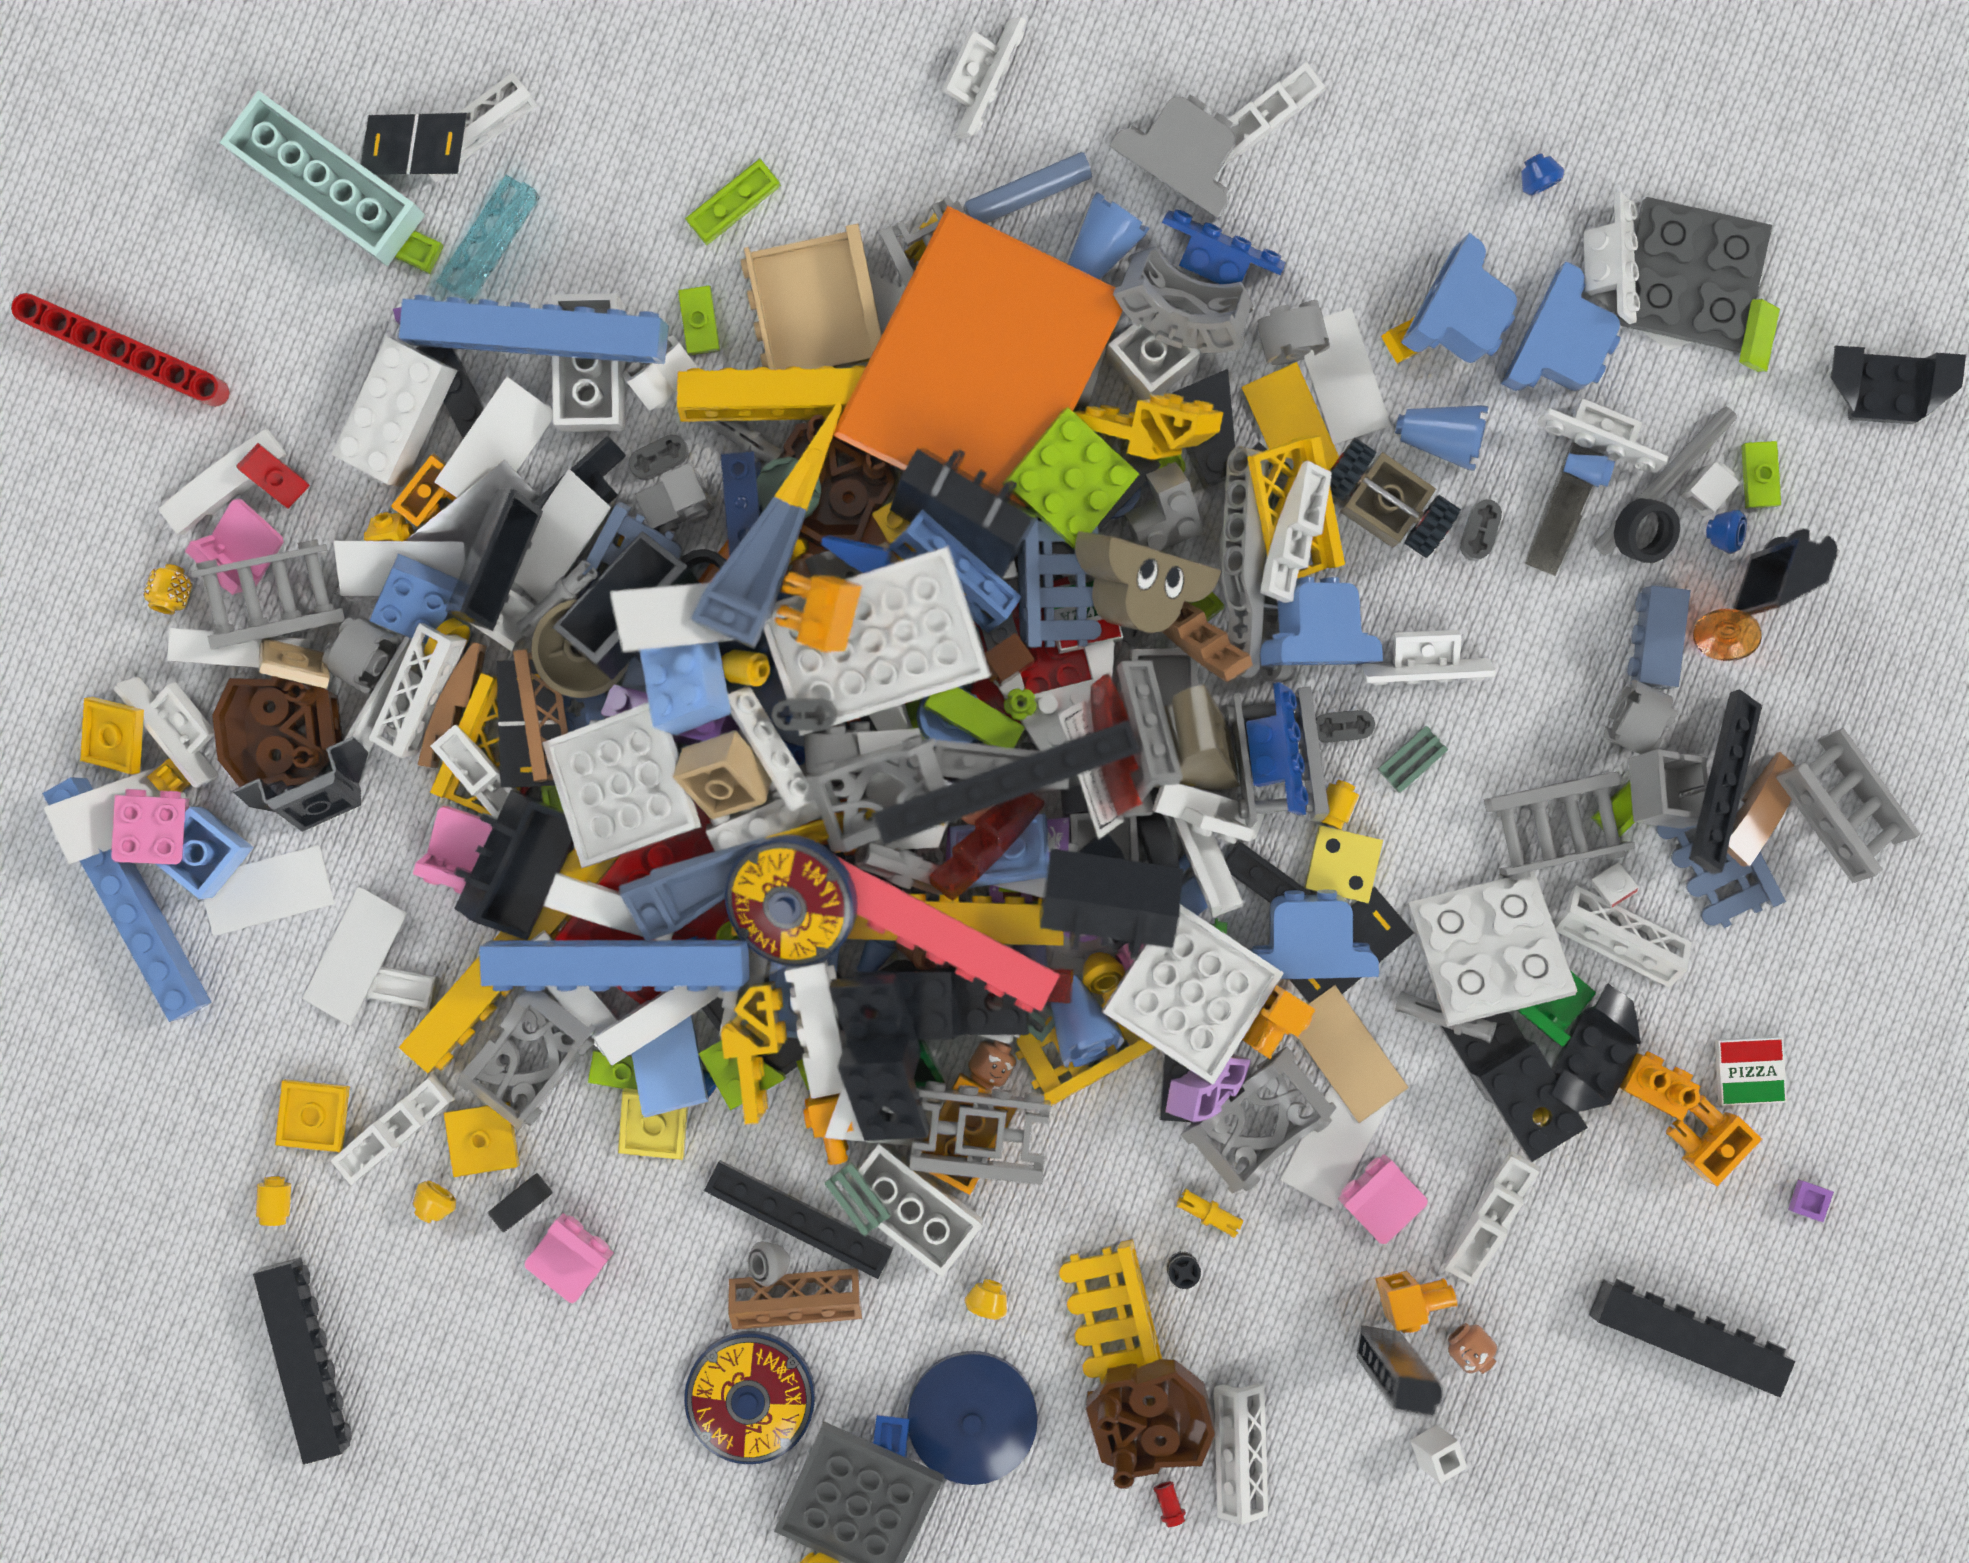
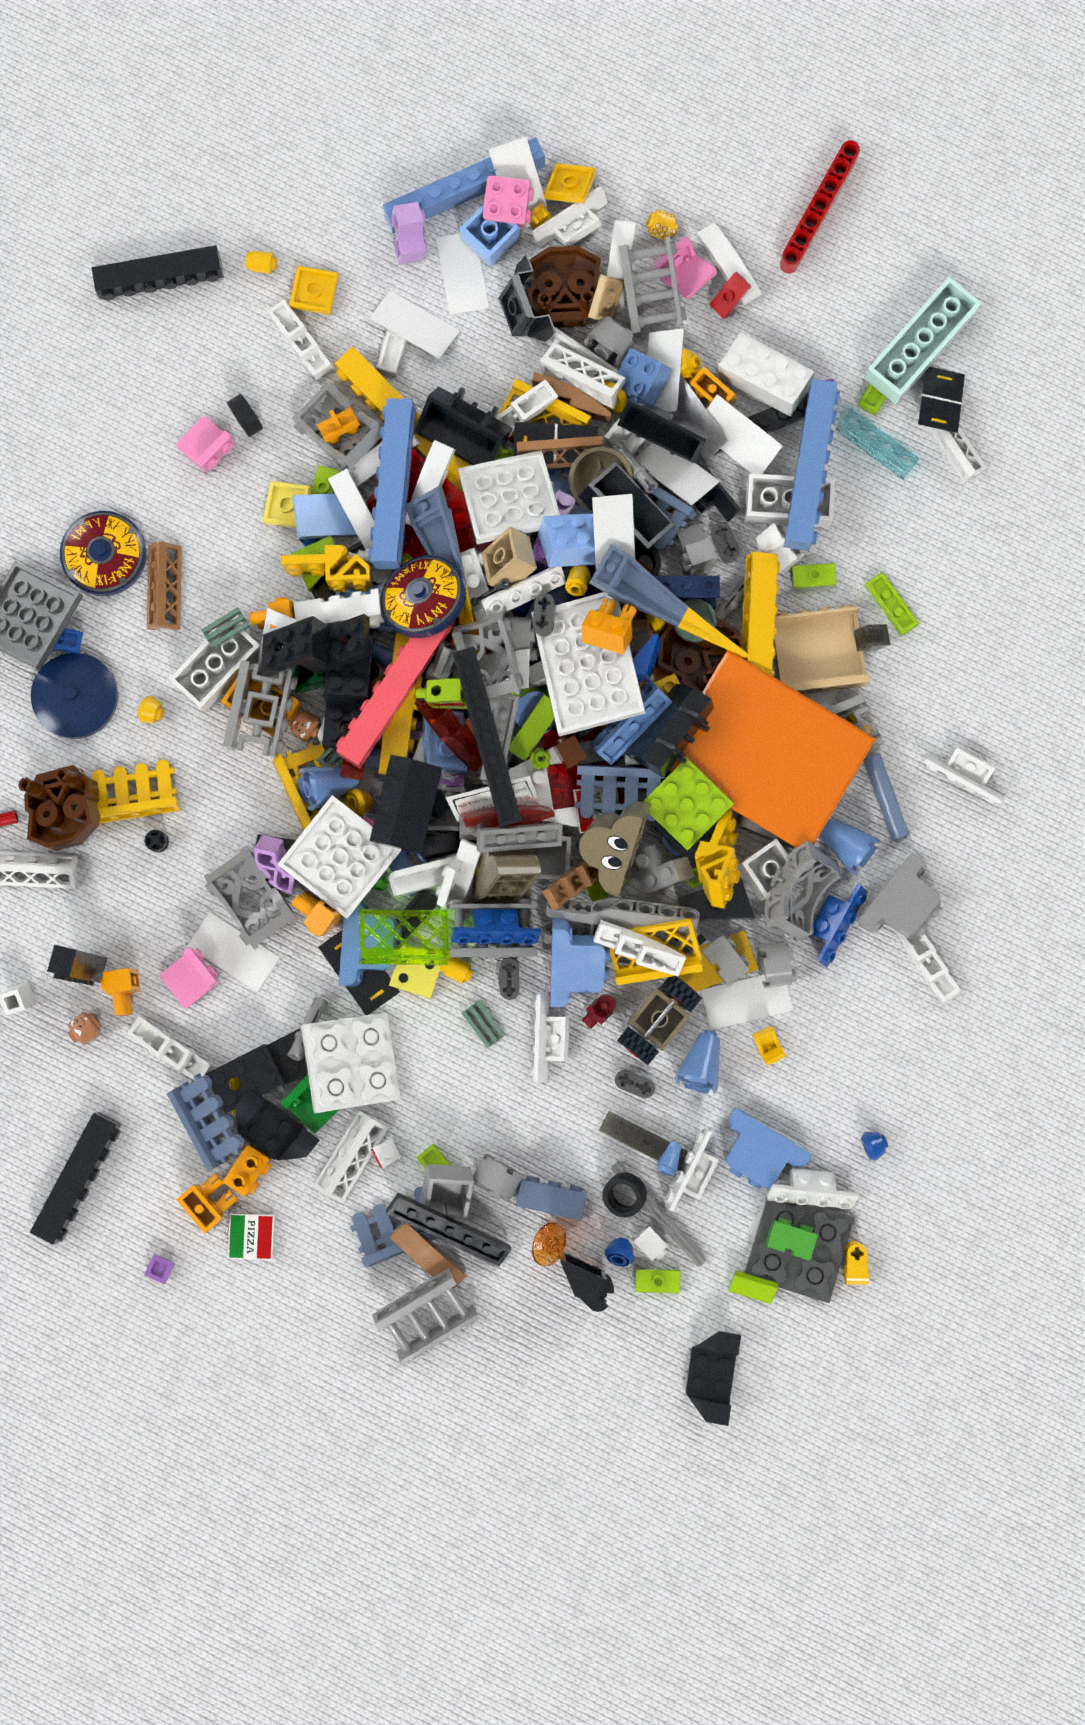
camera: 95 degrees right, 5 degrees down
(199, 978) = (409, 239): none -> lavender brick
(433, 1202) = (250, 361): yellow cone -> none
(452, 846) = (479, 389): bright pink bracket -> none
(480, 1141) = (287, 394): yellow plate -> none
(526, 1056) = (338, 425): none -> light orange hips
(763, 777) = (504, 584): none -> black hinge
(767, 1263) = (189, 570): light grey cone -> none
(789, 225) = (872, 637): none -> clear smoke brick
(798, 1219) = (216, 592): black plate -> none
(938, 844) = (450, 694): none -> lime torso
(1209, 1213) = (192, 862): yellow pin -> none
(1298, 400) = (726, 958): none -> light grey brick
(1331, 880) = (406, 955): none -> clear neon green fence
(1350, 1056) = (288, 964): tan sticker -> none
(1384, 588) = (599, 1010): none -> dark red hips
(1463, 307) = (785, 1081): medium blue brick -> none
(1538, 801) = (447, 1105): light grey fence -> none
(1597, 1168) = (197, 1125): none -> sand blue fence
(1688, 289) = (784, 1235): none -> bright green brick
(1713, 190) = (856, 1268): none -> yellow piece

